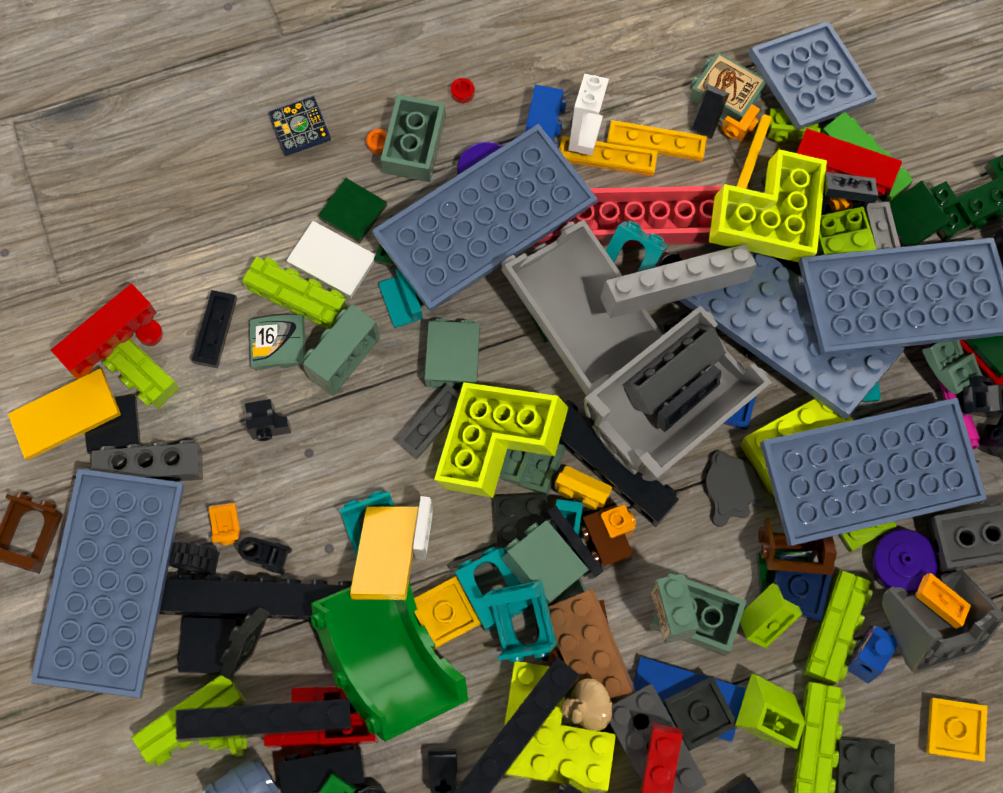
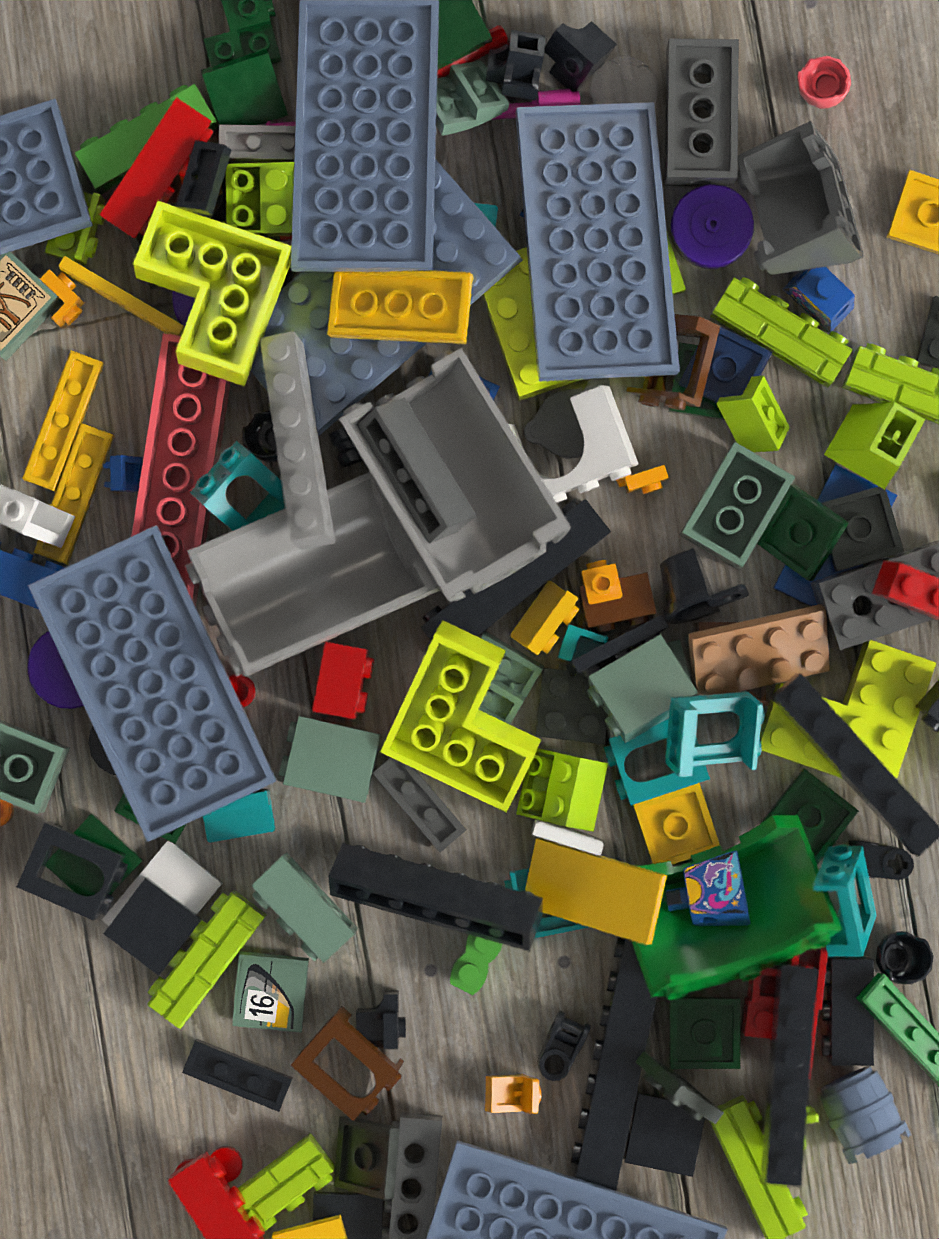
camera: 75 degrees left, 15 degrees up
(165, 425) = (366, 1157): none -> pearl dark grey plate
(194, 558) = (554, 1139): black tyre -> none
(229, 425) = (384, 1069): none -> reddish brown panel
(289, 661) = (704, 1033): none -> dark green plate
(313, 252) = (152, 926): none -> black tile
(317, 479) = (471, 965): none -> bright green brick
(348, 169) = (109, 862): none -> black panel
(363, 440) = (436, 896): none -> black brick
(391, 758) = (838, 872): none -> teal panel
(398, 645) = (713, 892): none -> torso
(458, 522) = (562, 790): none -> lime slope
(471, 721) = (819, 810): none -> dark green tile
(490, 286) = (244, 689): none -> red tile
(510, 348) = (342, 681): none -> red brick
(589, 705) = (831, 667): tan hair -> none
(625, 591) = (689, 590): none -> black container
(629, 179) = (124, 473): none -> blue tile
(674, 608) = (740, 538): sand green brick -> none
(687, 668) = (802, 533): none -> dark green tile
(688, 398) = (459, 460): black plate -> none
(701, 544) = (647, 480): none -> light orange bracket
(709, 111) = (38, 339): black tile -> none
(719, 504) = (605, 445): none -> white arch
(792, 339) = (401, 306): none -> yellow tile
(943, 600) = (773, 192): light orange plate -> none

